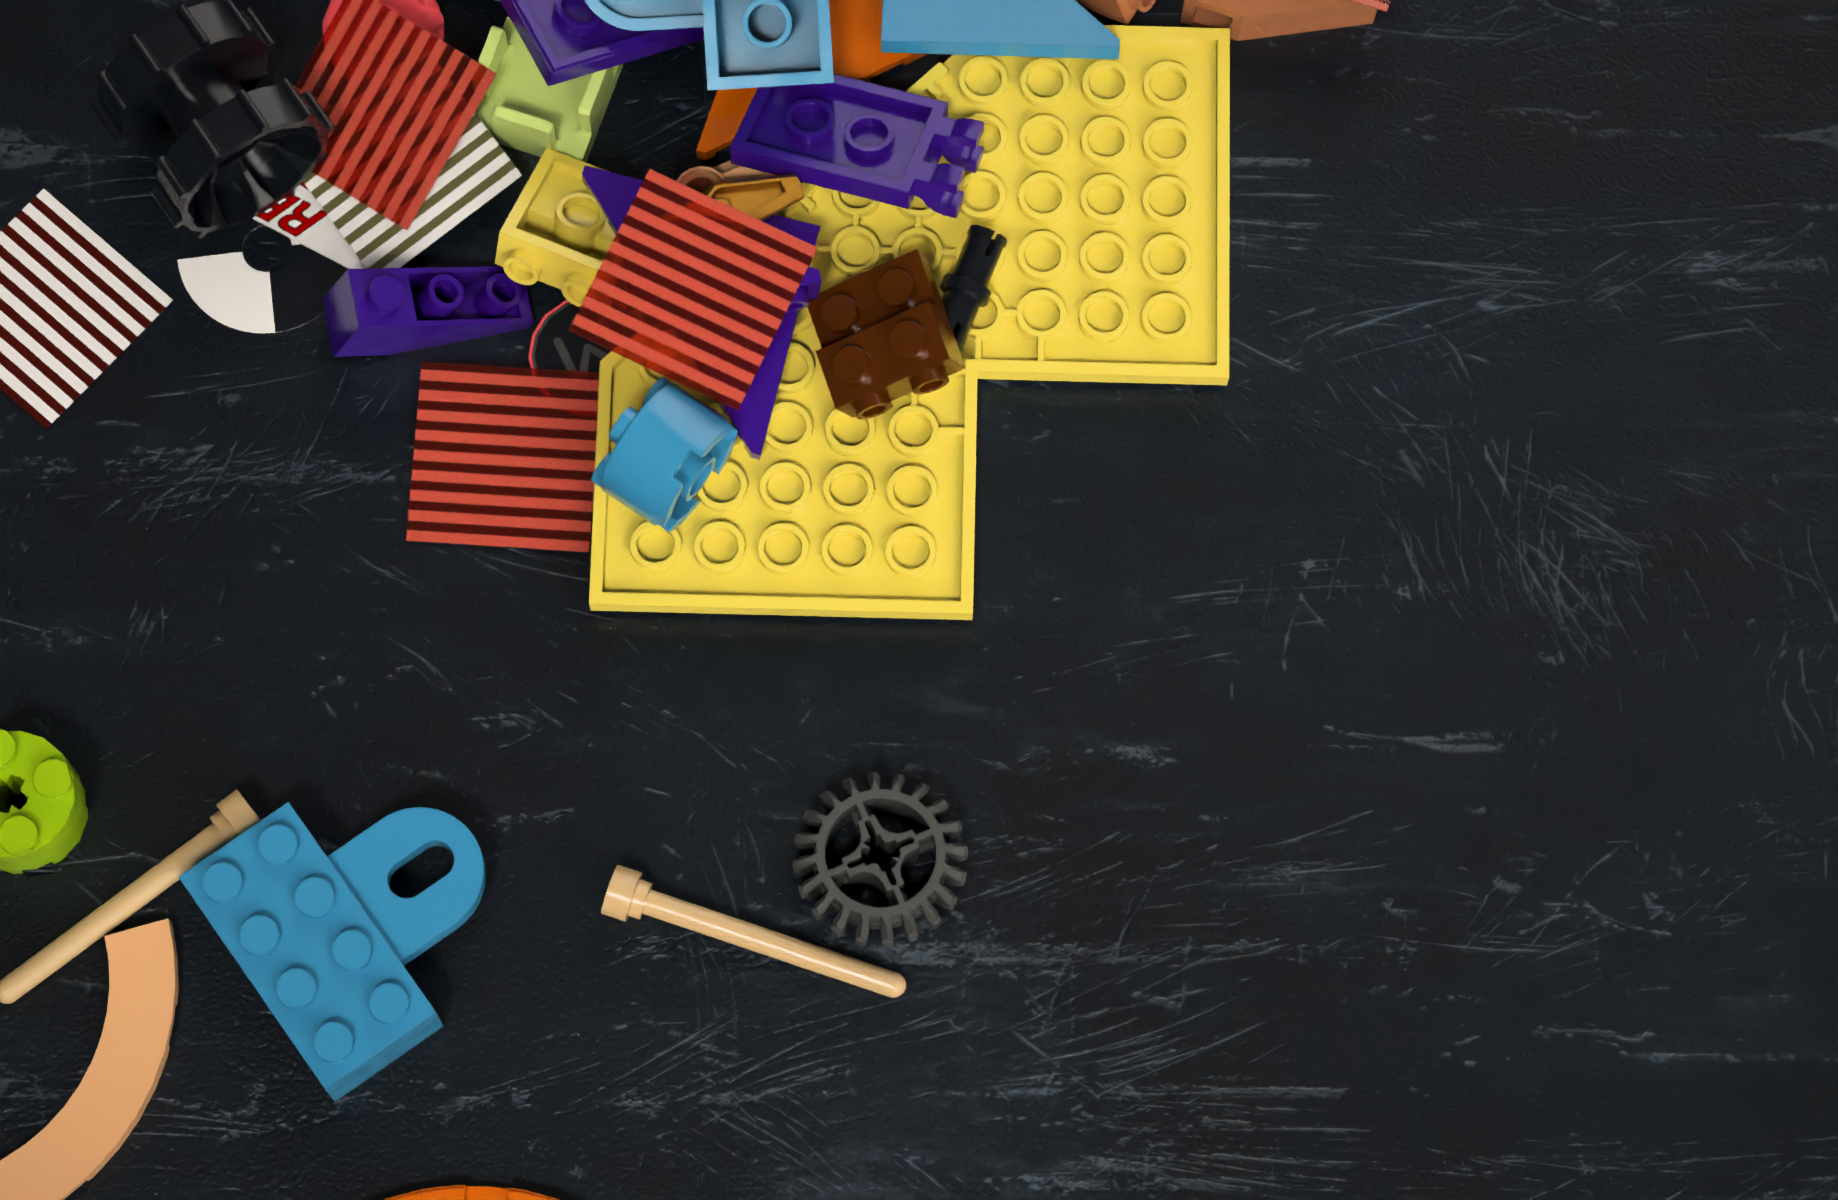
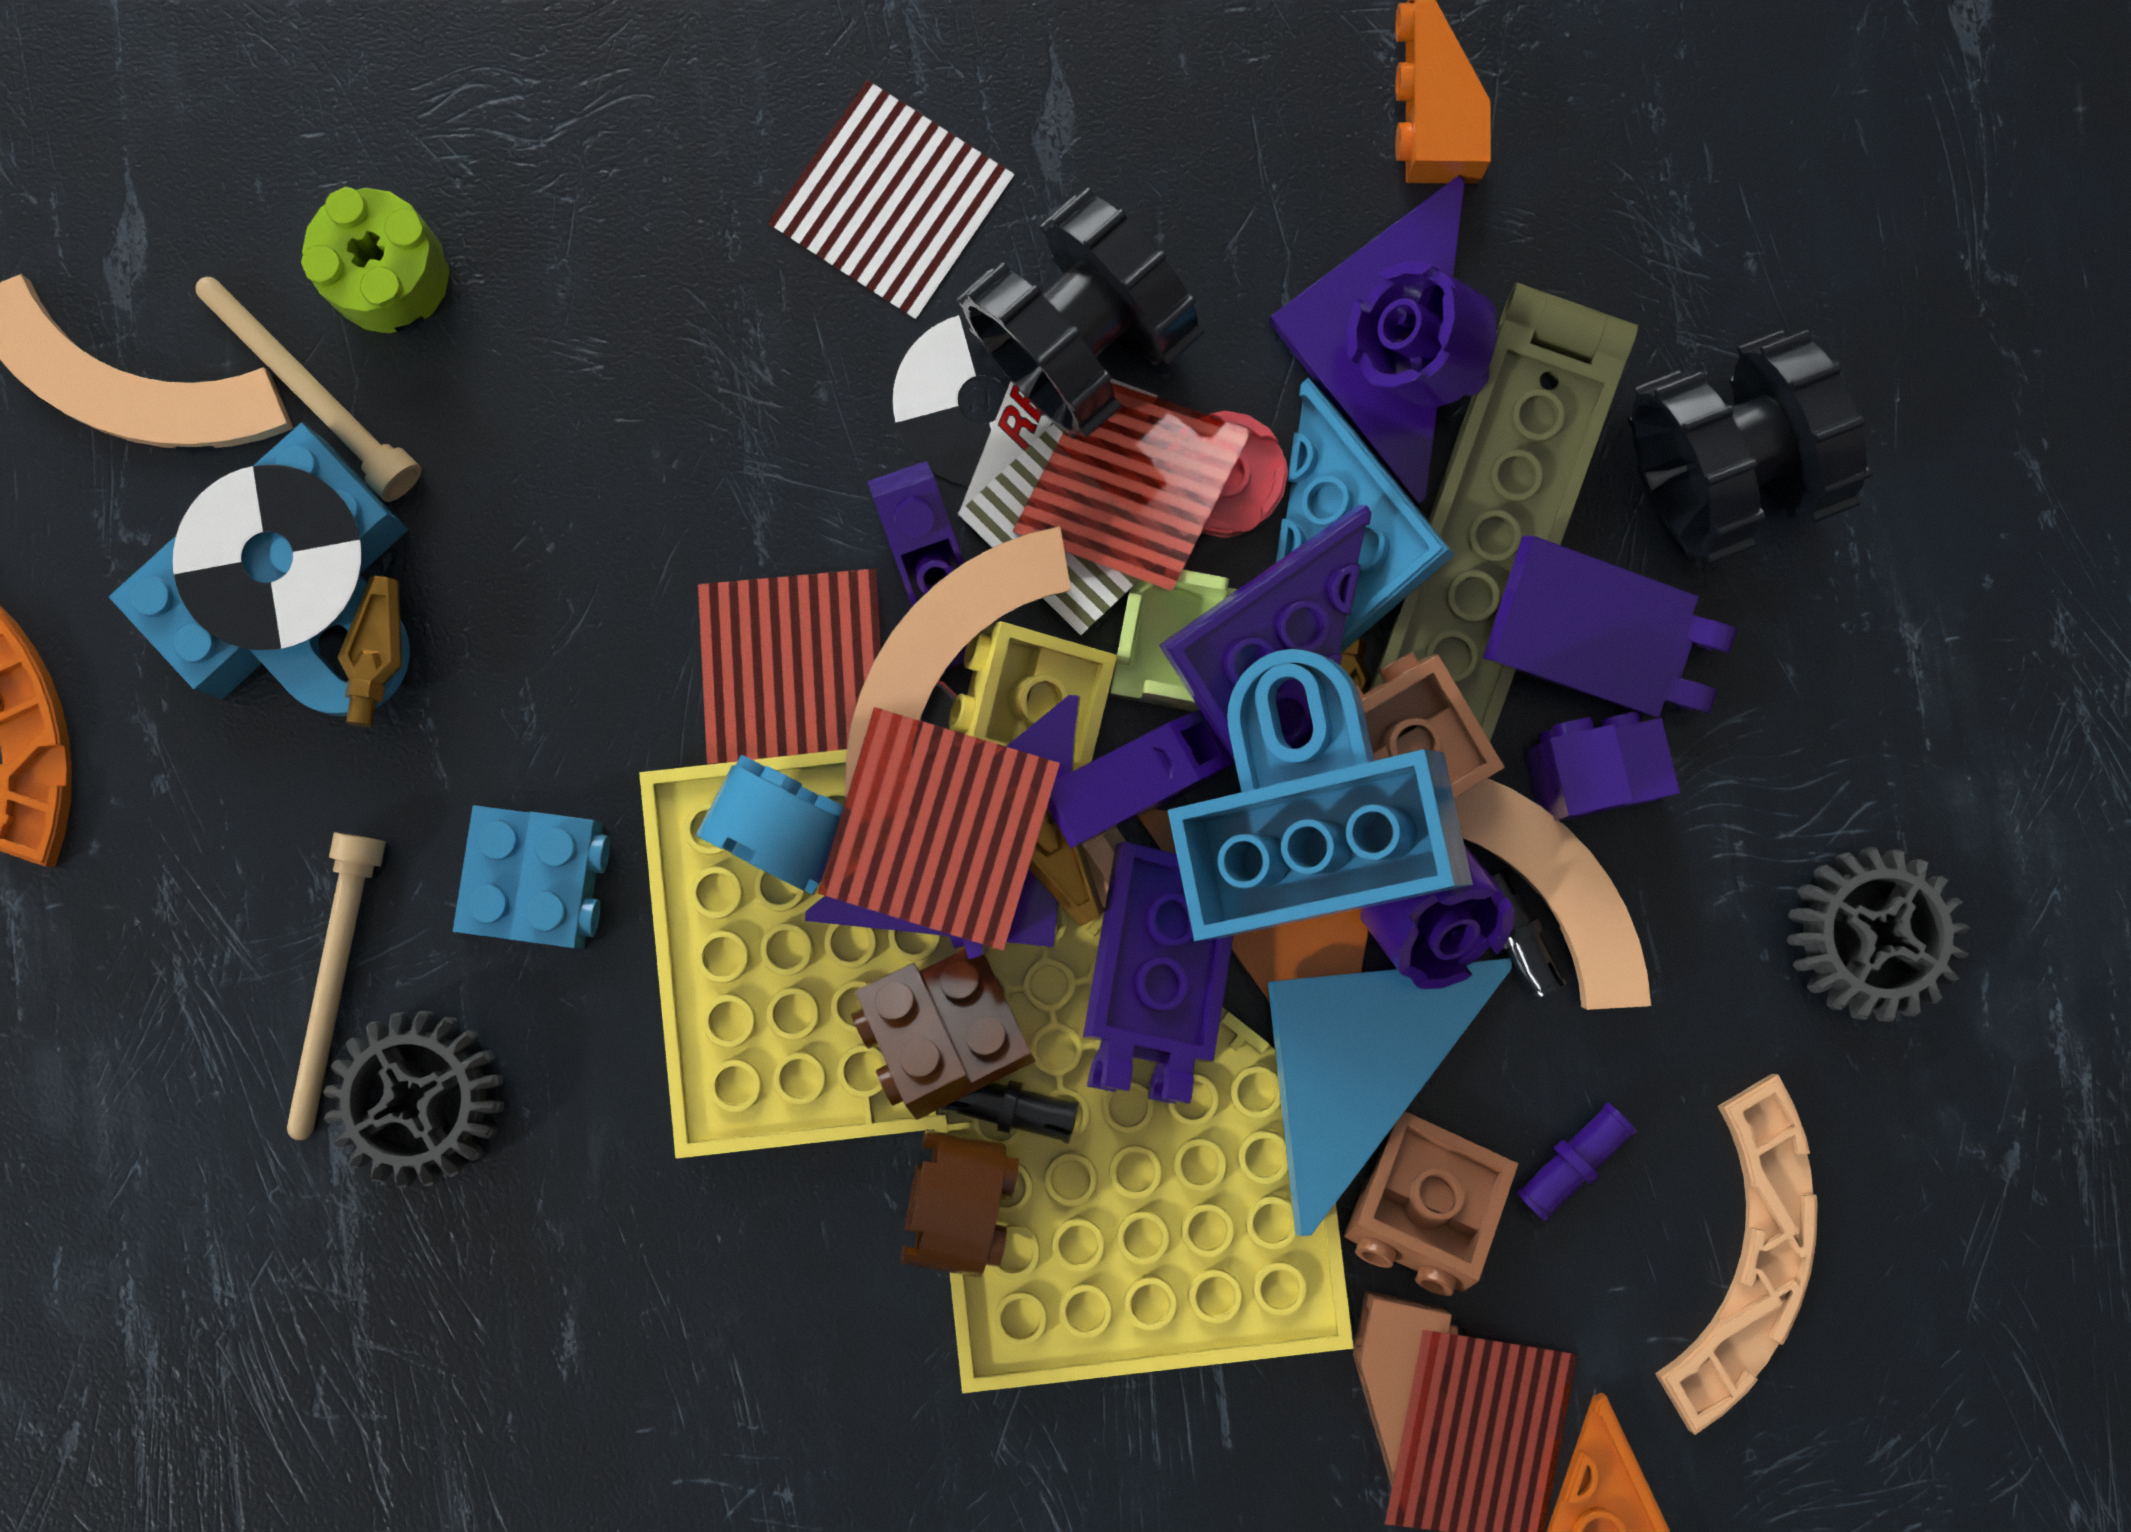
camera: 85 degrees right, 10 degrees up
(325, 973) = (277, 612): none -> sticker
(425, 830) = (372, 649): none -> pearl gold piece
(505, 301) = (949, 620): none -> light nougat tile
(669, 122) = (1137, 778): none -> dark purple slope
(676, 726) = (531, 877): none -> dark azure plate
(1049, 335) = (958, 1204): none -> reddish brown brick

